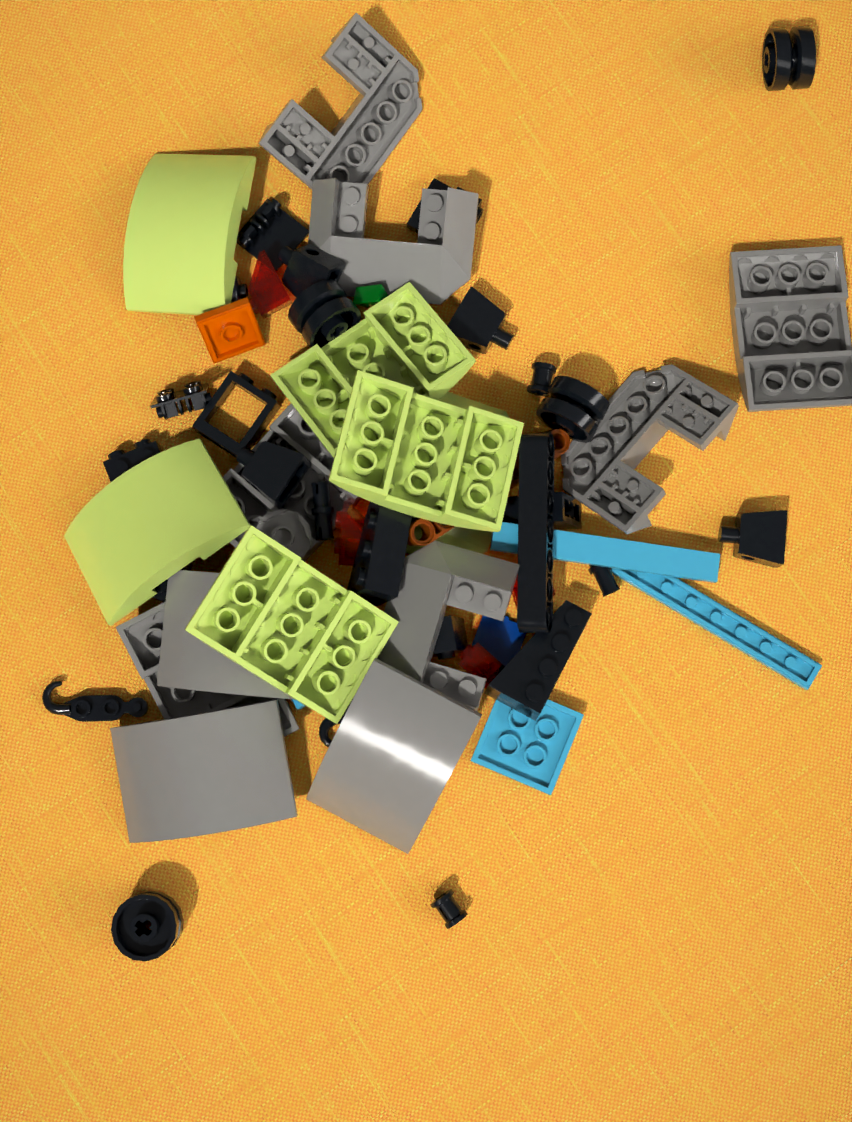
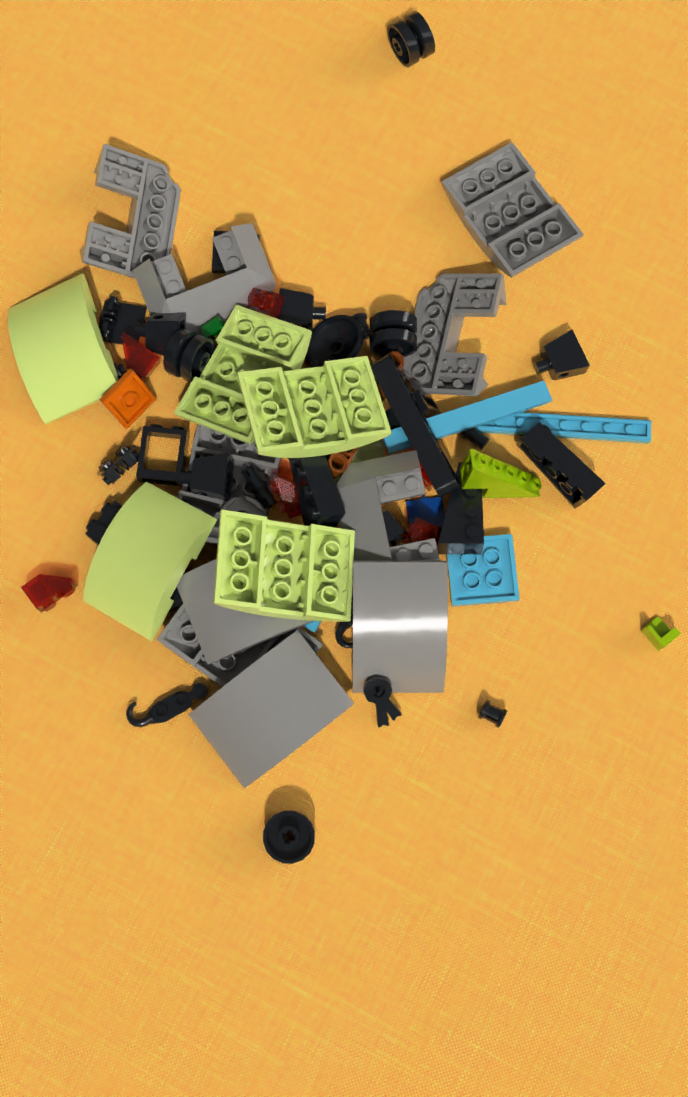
camera: 30 degrees left, 5 degrees down
(27, 504) = (47, 590): none -> clear red slope
(331, 817) = (378, 692): none -> black piece
(443, 297) = (265, 302): none -> clear red slope
(500, 382) = (334, 339): none -> black dish
(600, 643) = (496, 477): none -> lime slope
(683, 664) = (560, 465): none -> black wedge
(692, 920) = (659, 633): none -> lime panel

